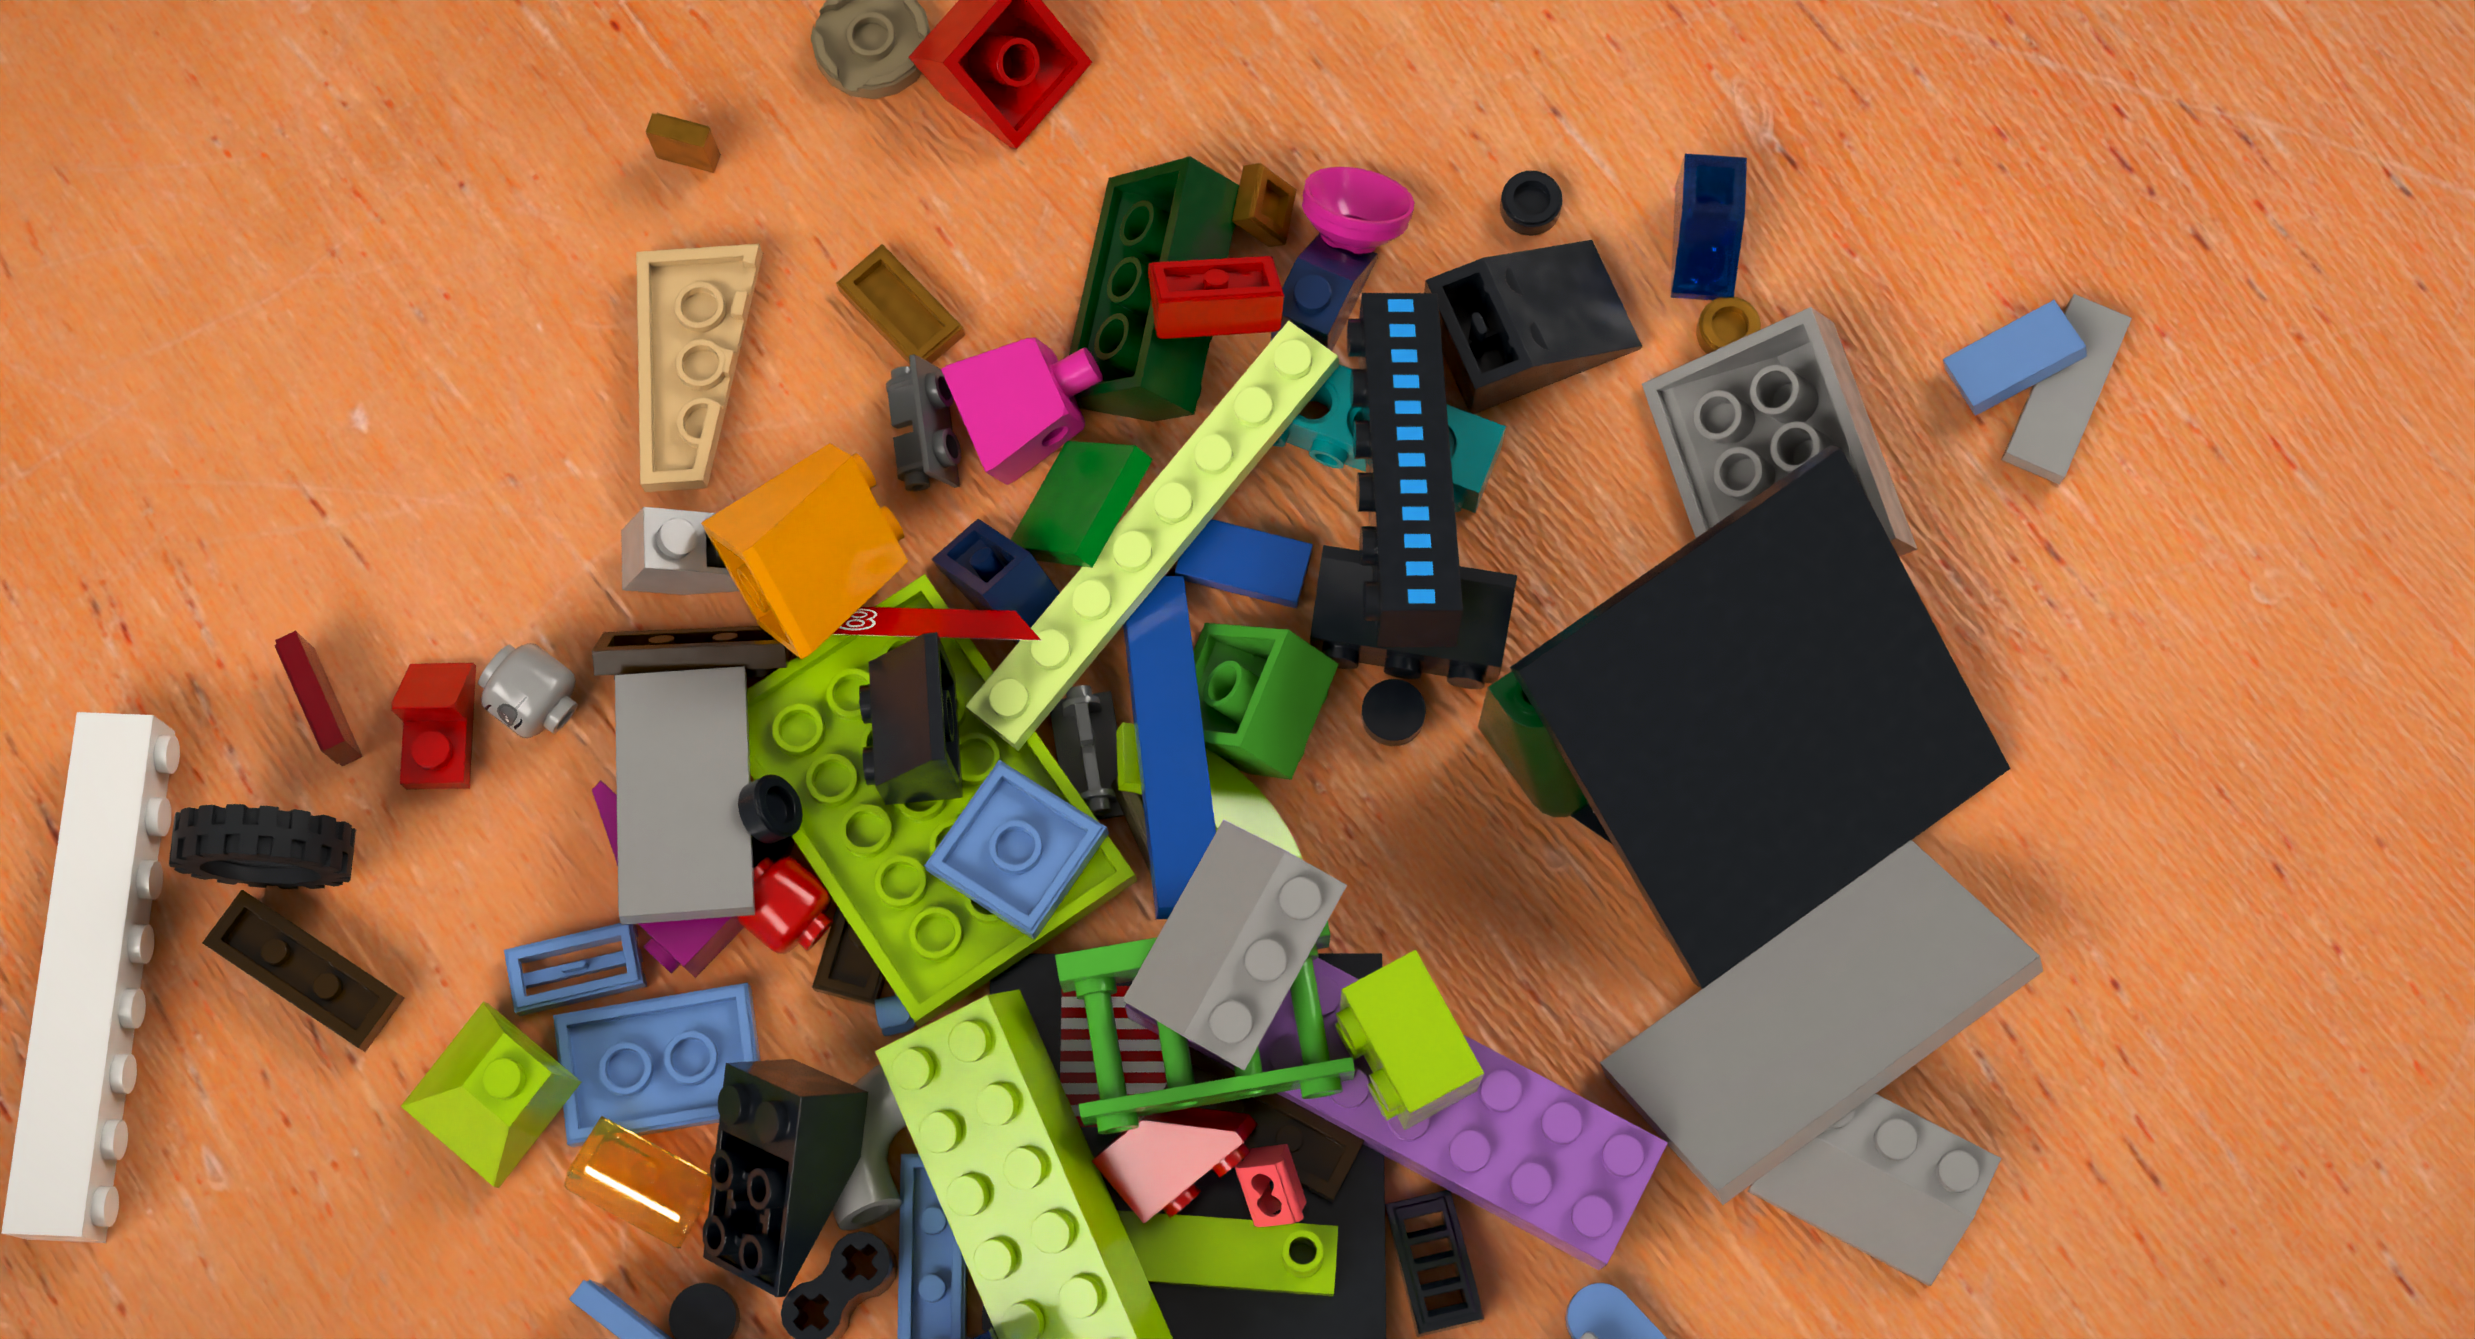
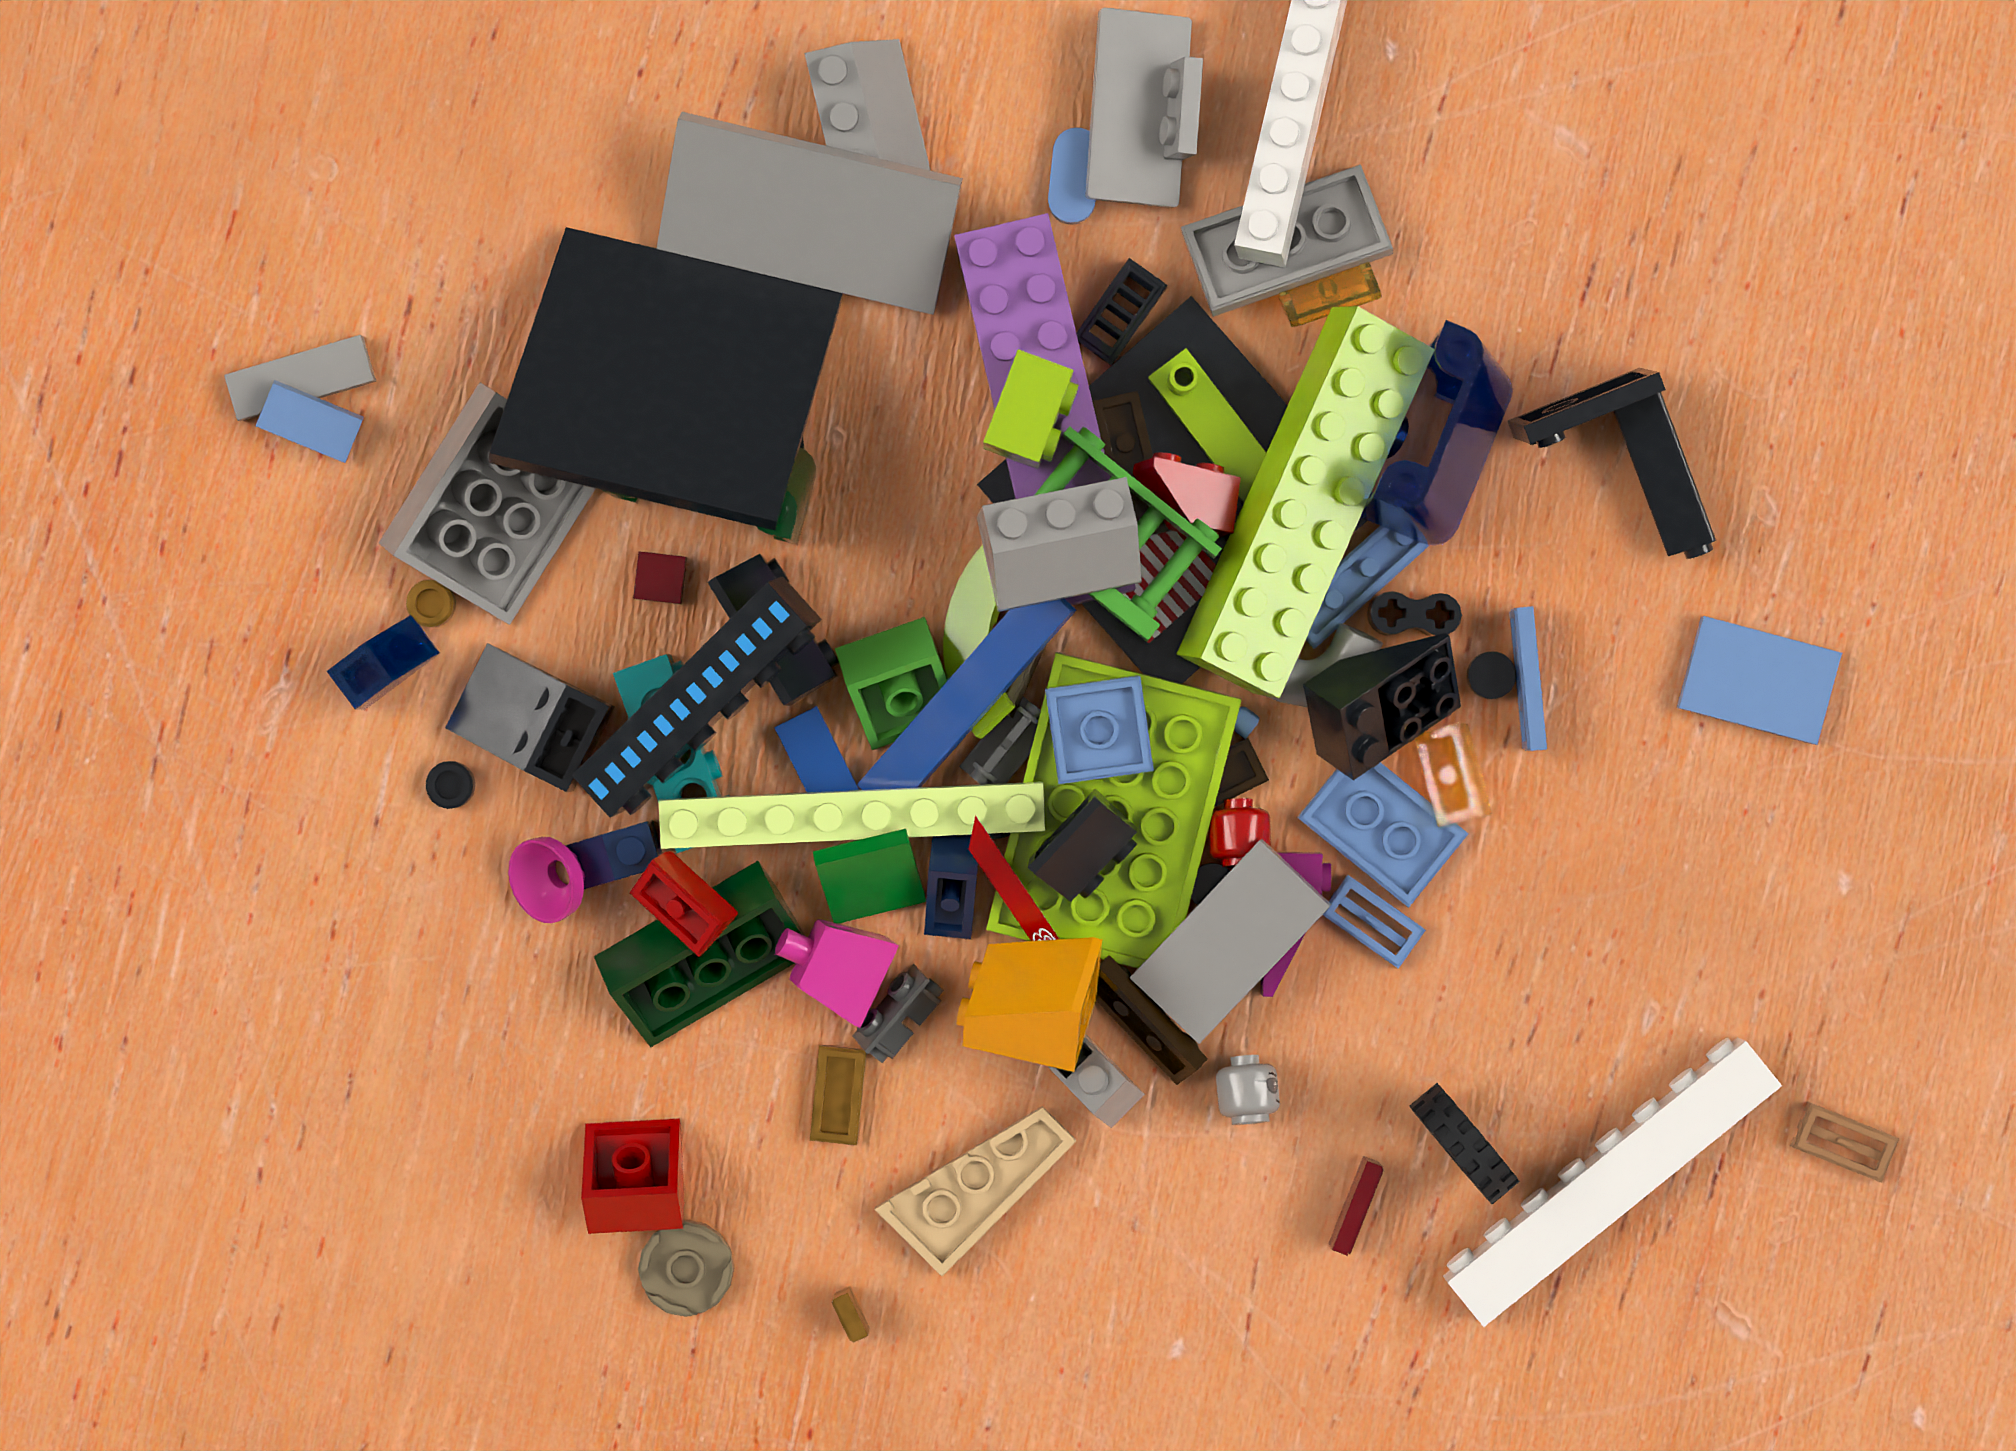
camera: 130 degrees left, 15 degrees up
(303, 970) = (1506, 1067): dark brown plate -> none
(437, 725) = (1309, 1128): red slope -> none
(491, 1094) = (1479, 901): lime slope -> none
(770, 809) = (1197, 884): black tile -> none
(1255, 1174) = (1147, 433): coral piece -> none
(1264, 205) = (591, 936): pearl gold tile -> none
(1393, 712) = (832, 597): black tile -> none
(1562, 562) = (660, 577): none -> dark red tile

